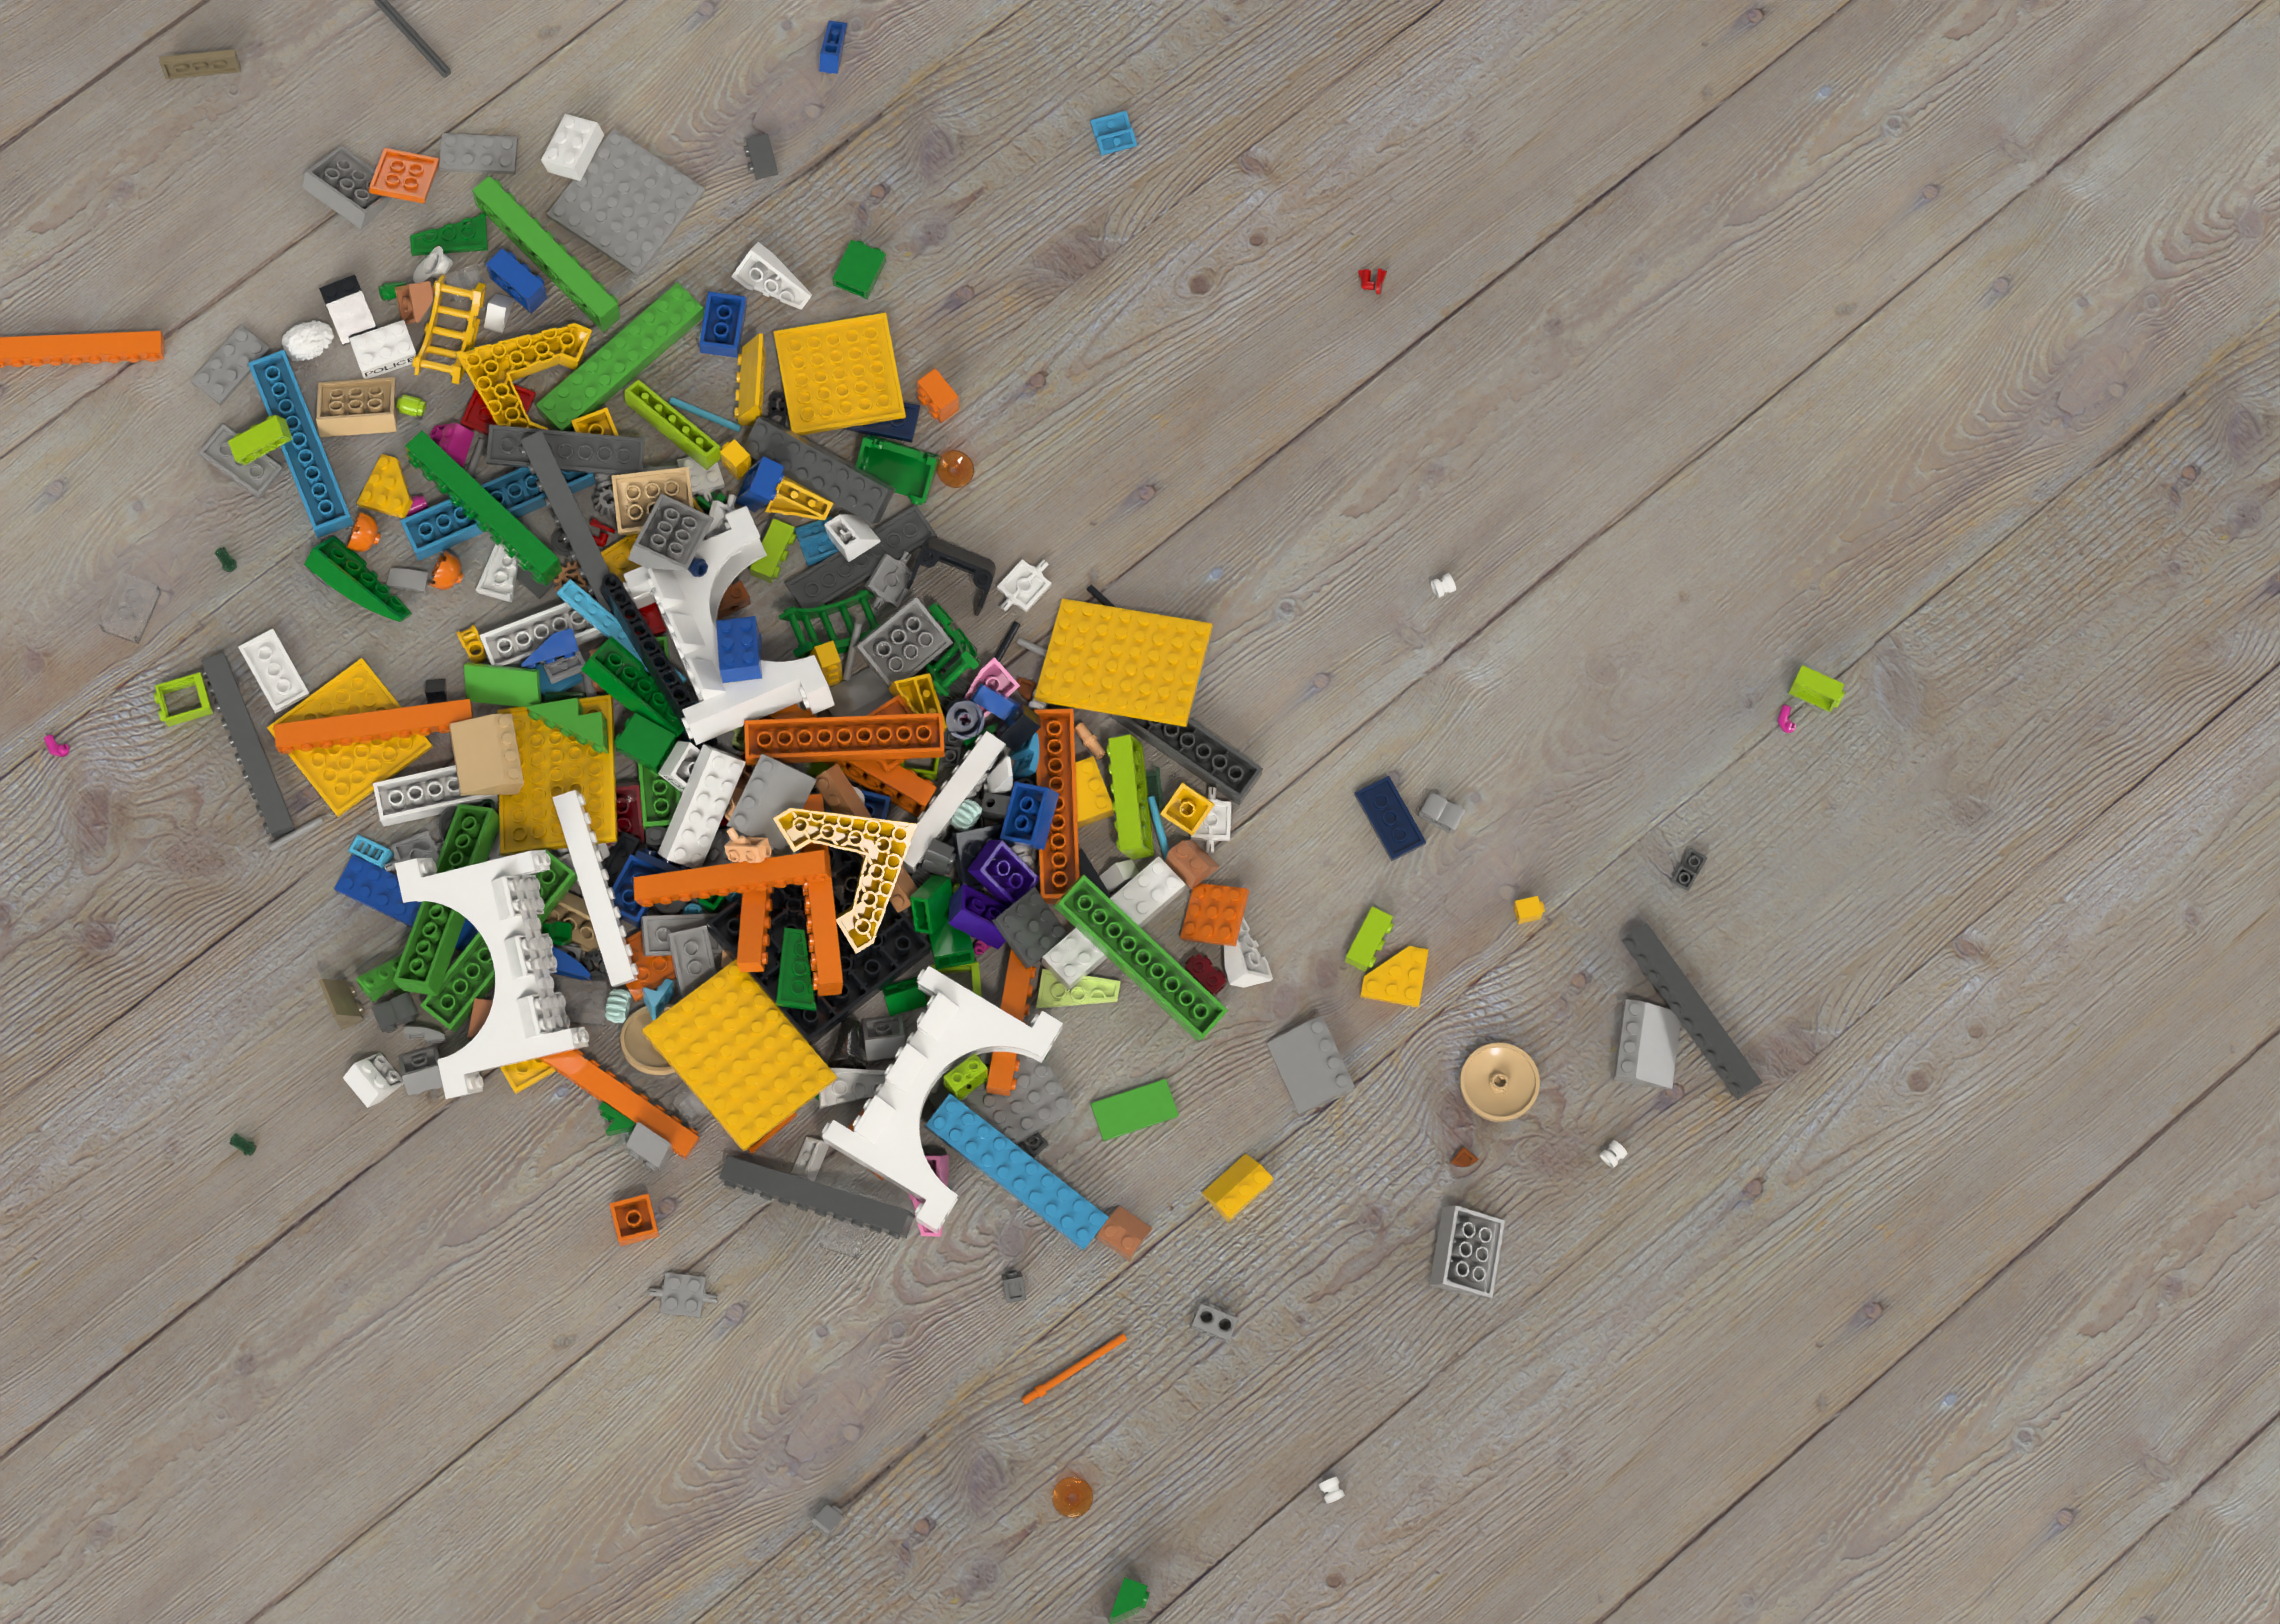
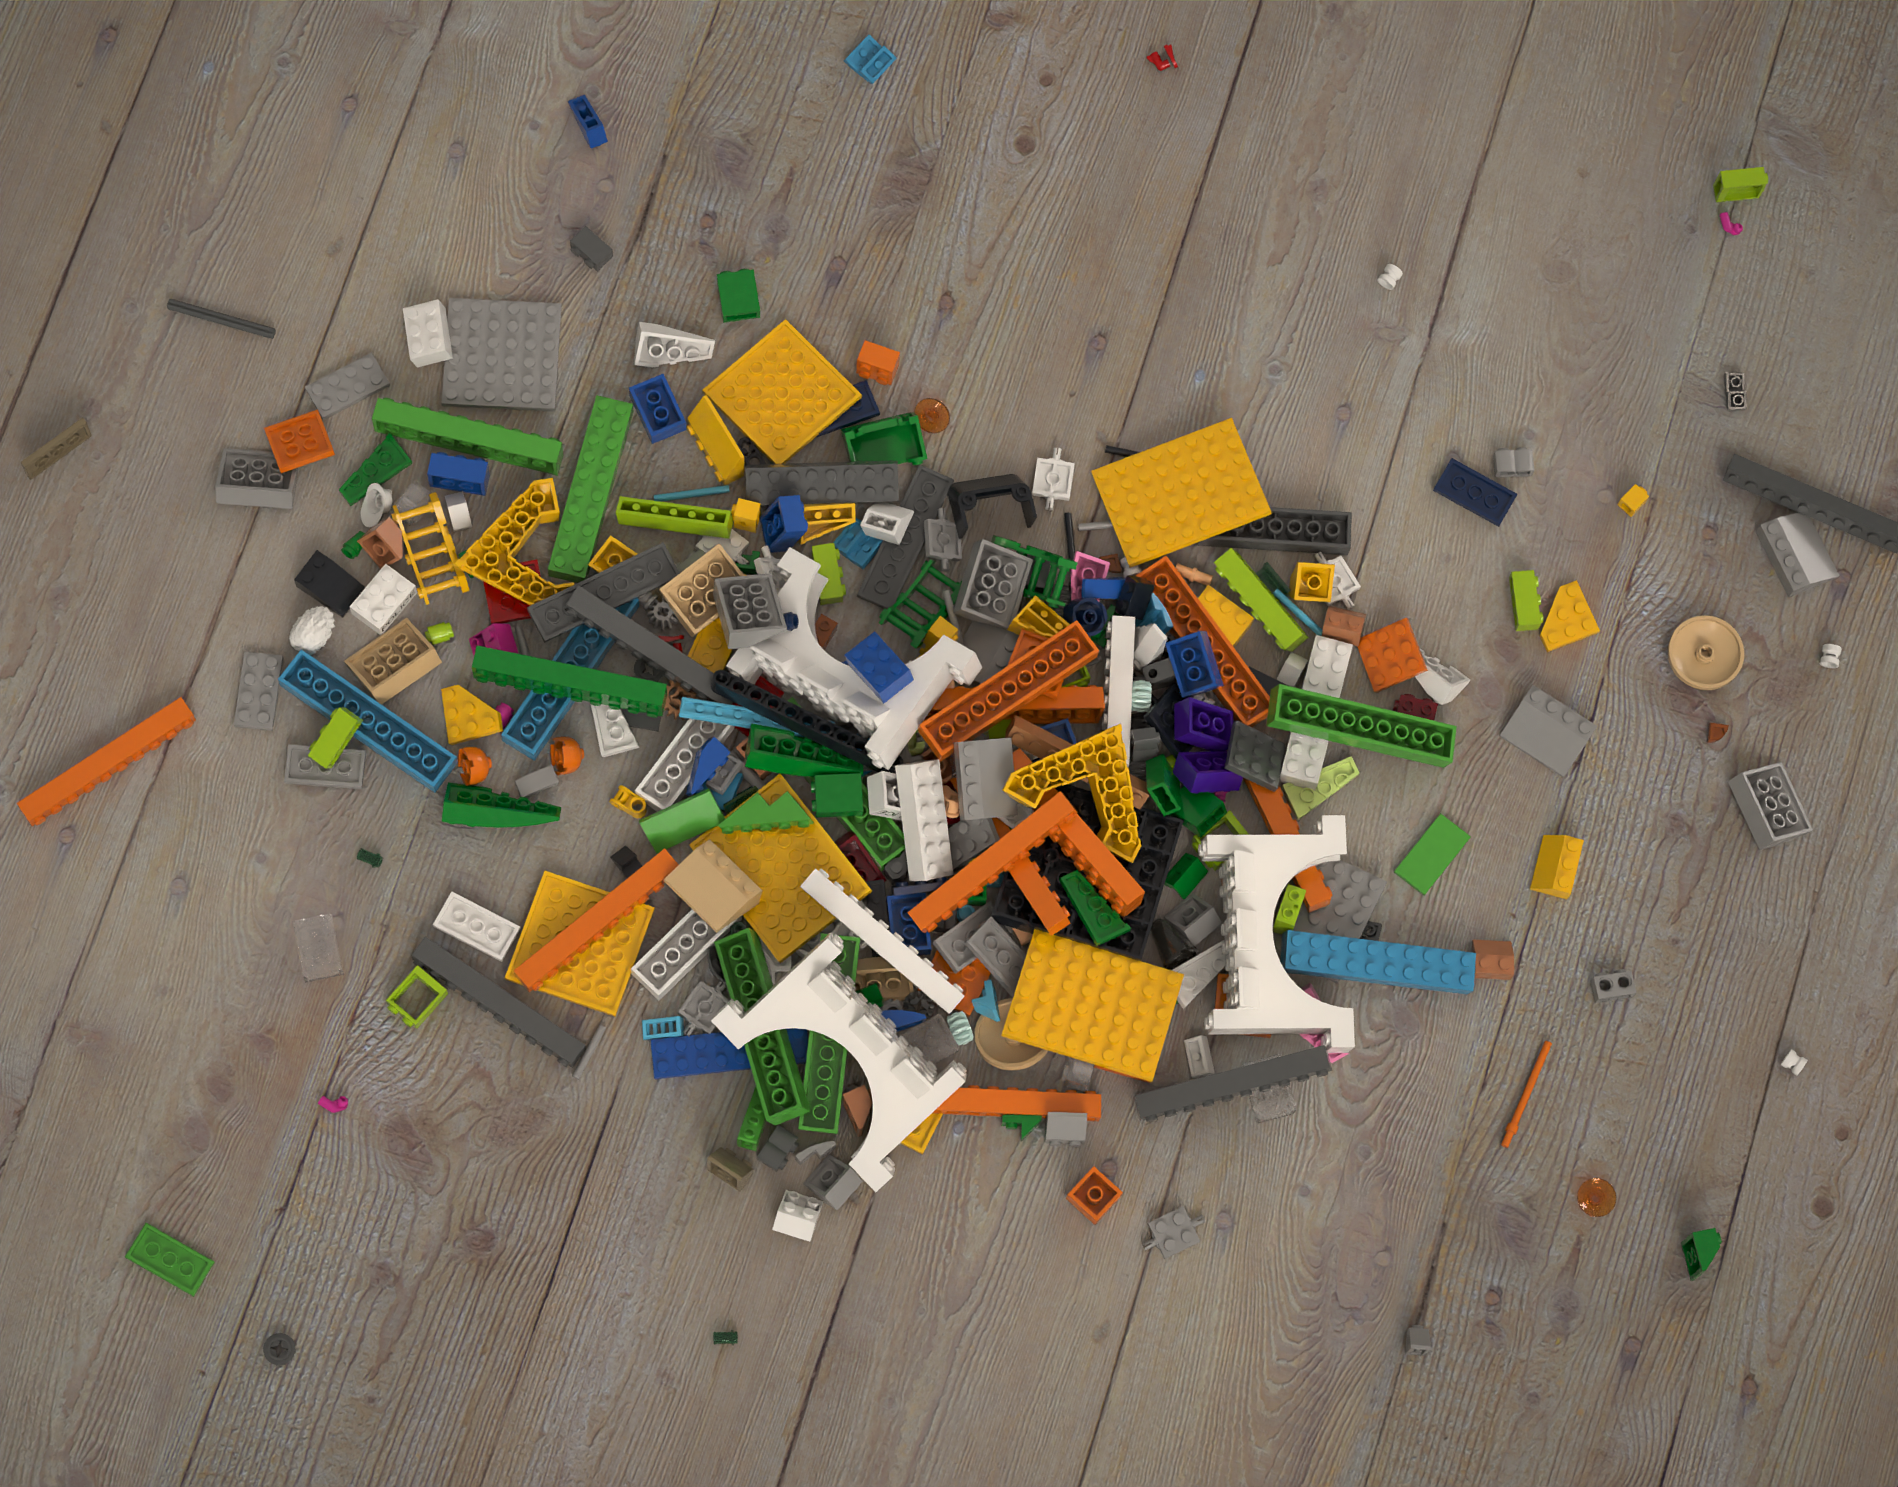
camera: 35 degrees left, 0 degrees up
(747, 848) = (993, 829): light nougat brick -> none
(1013, 1286) = (1434, 1057): dark grey bracket -> none

